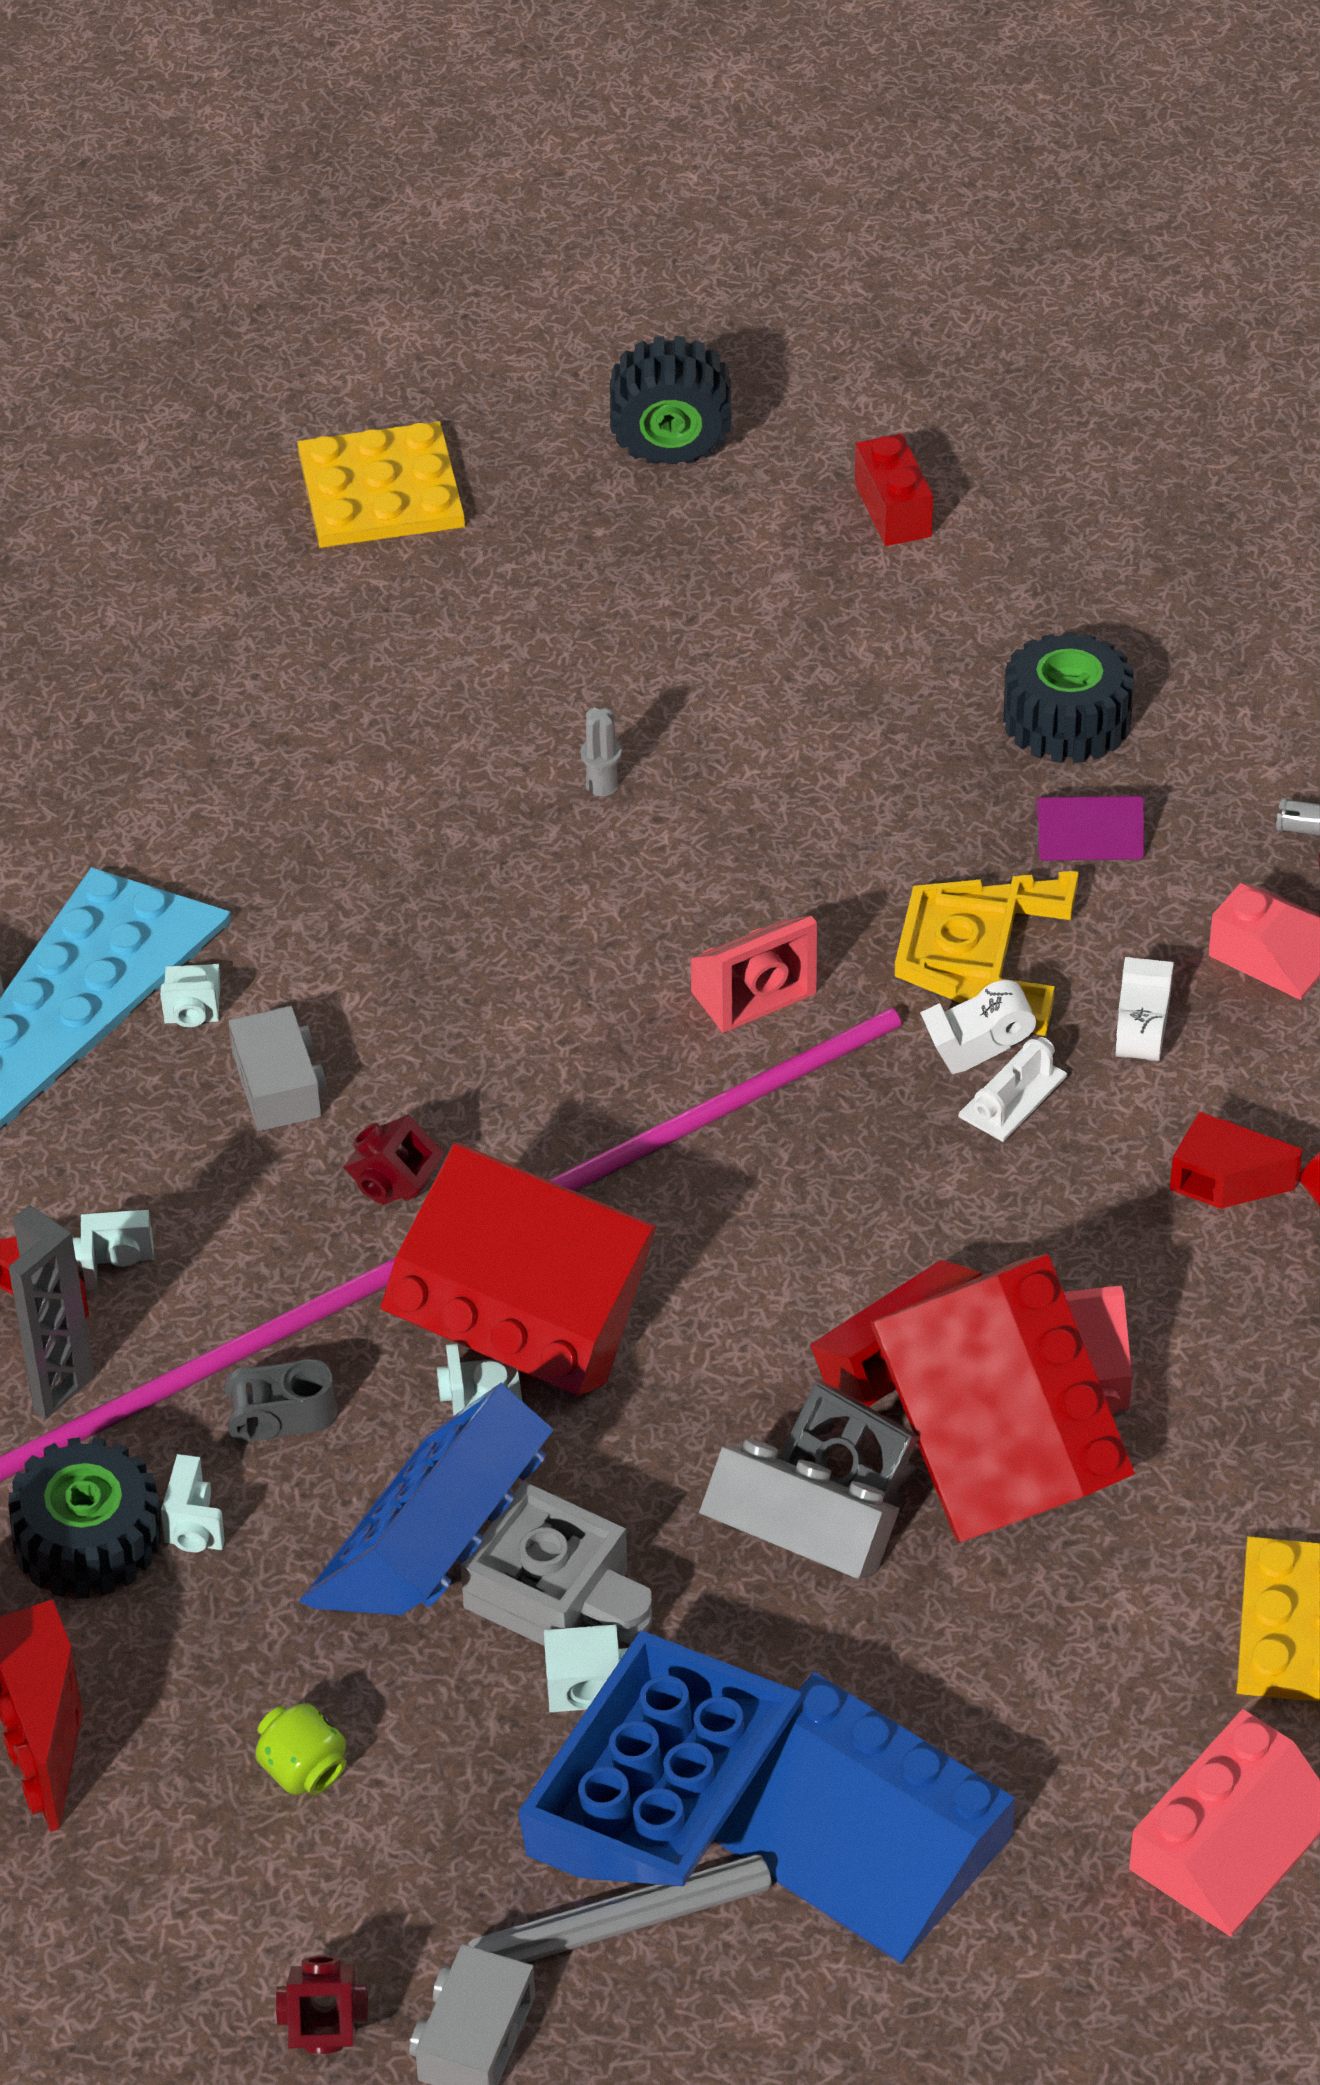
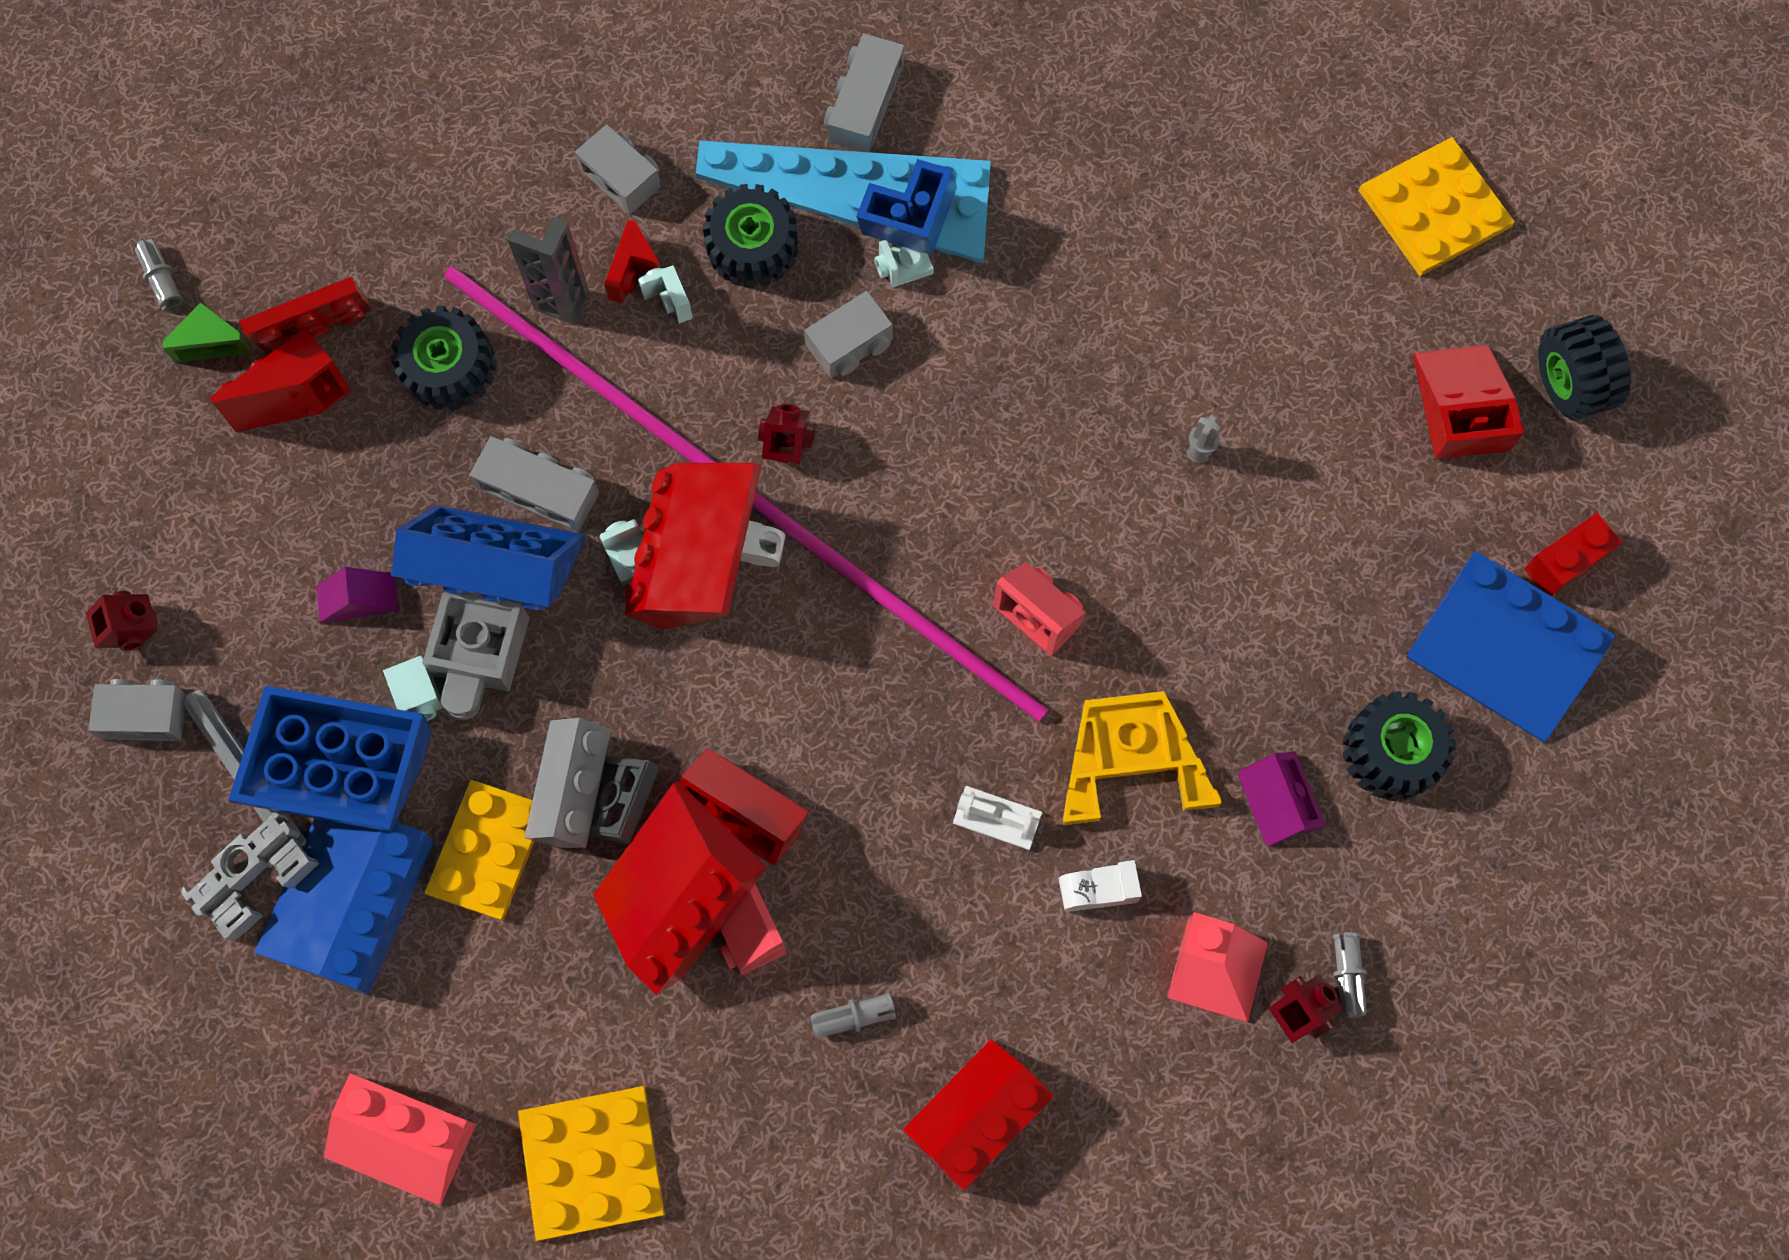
camera: 70 degrees right, 25 degrees up
(74, 1129) = (750, 235): none -> black wheel
(146, 932) = (910, 217): none -> blue brick
(186, 1510) = (478, 410): light aqua bracket -> none
(284, 1399) = (574, 434): dark grey piece -> none
(300, 1749) = (309, 544): lime head -> none
(330, 1460) = (535, 483): none -> light grey brick
(401, 1724) = (356, 594): none -> magenta slope
(658, 521) = (1467, 402): none -> red slope
(792, 1978) = (265, 848): none -> light grey piece
(853, 1641) = (483, 852): none -> yellow plate
(978, 573) = (1510, 646): none -> blue slope
(980, 1025) = (1038, 774): white leg -> none
(1225, 1294) = (853, 1015): none -> light grey axle
(1232, 1164) = (972, 985): red slope -> none

